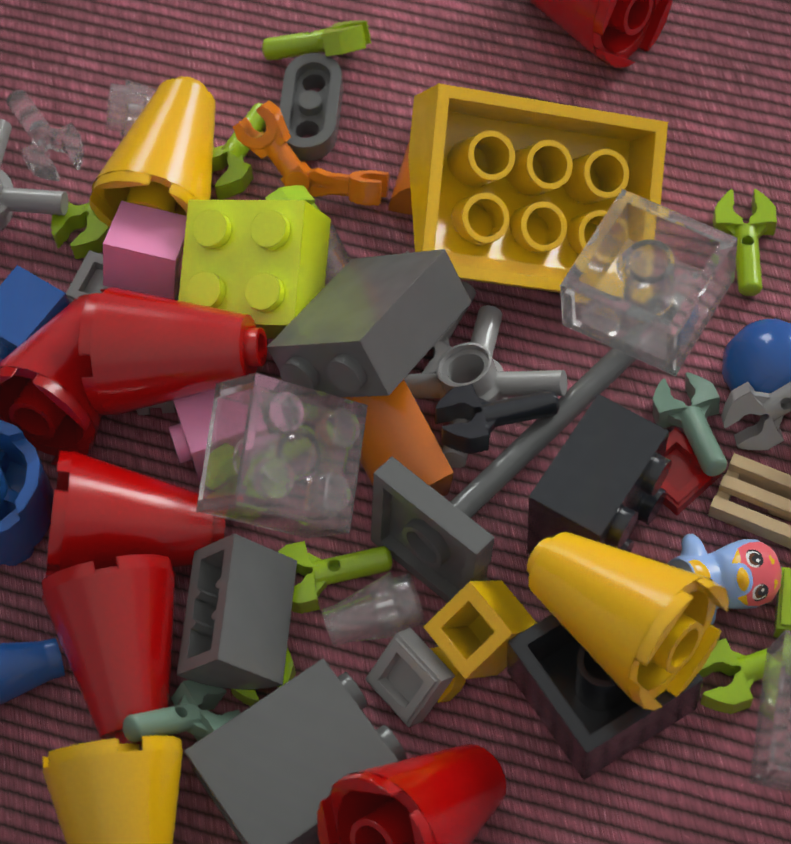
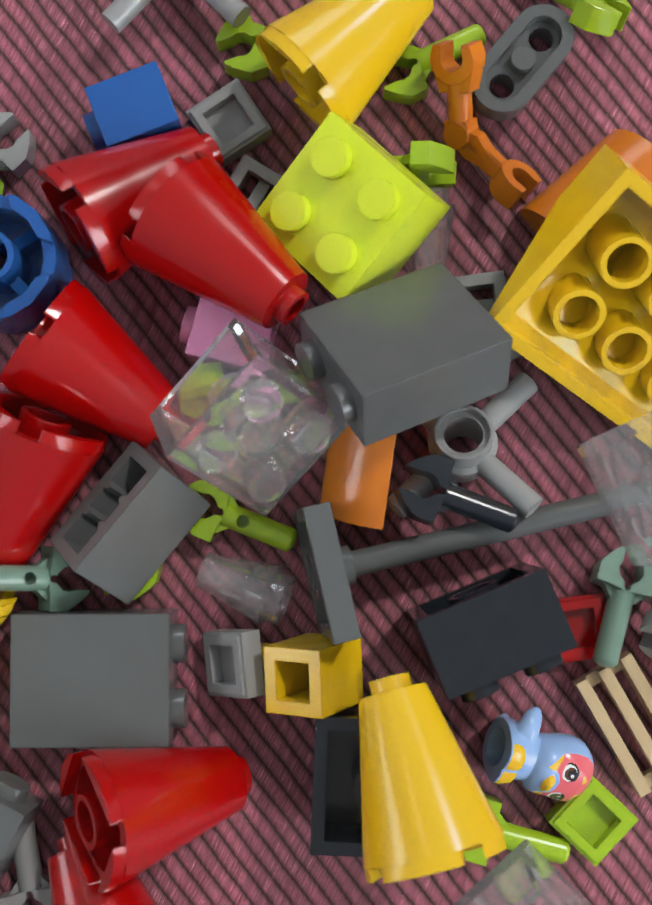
camera: 30 degrees right, 25 degrees up
(144, 250) = (273, 120): bright pink brick -> none

